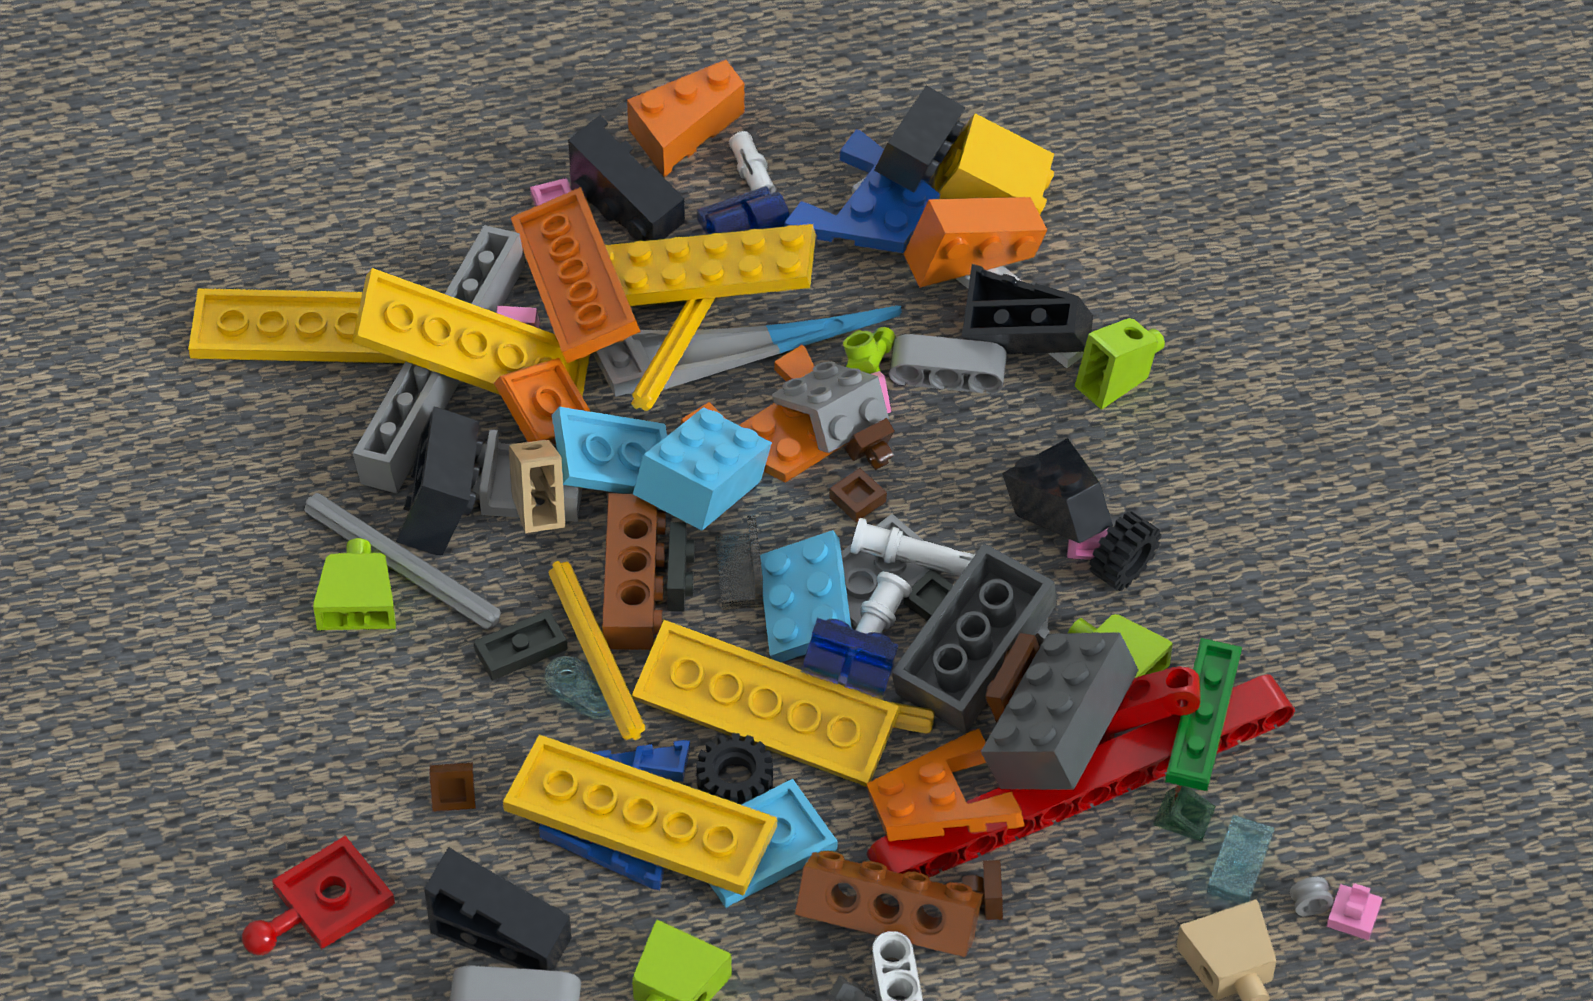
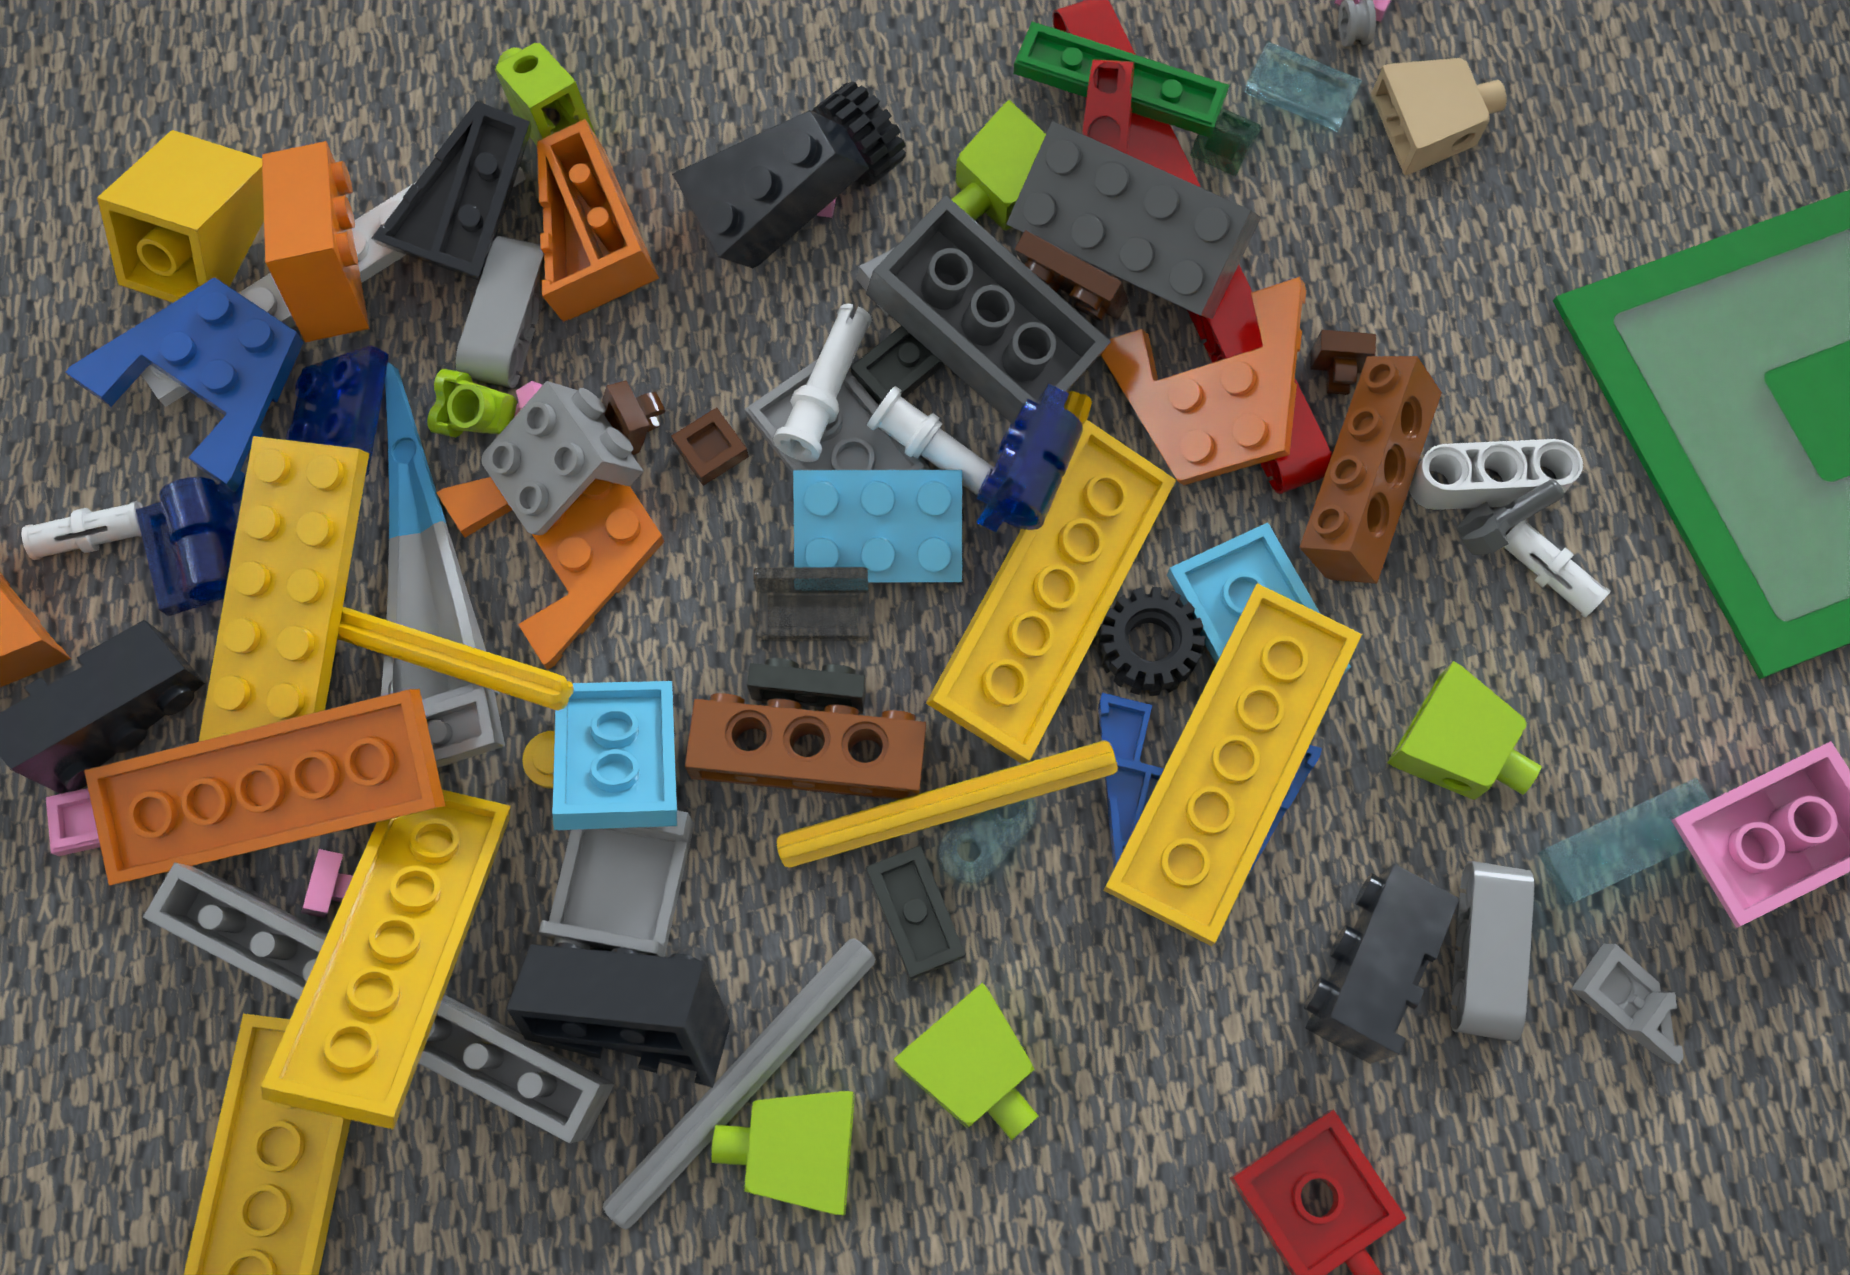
camera: 85 degrees left, 20 degrees up
(417, 682) = (972, 1064): none -> lime torso
(452, 787) = (1153, 1019): reddish brown tile -> none
(536, 394) = (507, 846): orange tile -> none
(537, 473) = (657, 864): tan torso -> none
(702, 468) = (664, 631): medium azure brick -> none
(866, 278) = (341, 401): none -> clear blue plate
(921, 140) = (127, 277): black wedge -> none
(1023, 399) = (588, 228): none -> orange wedge

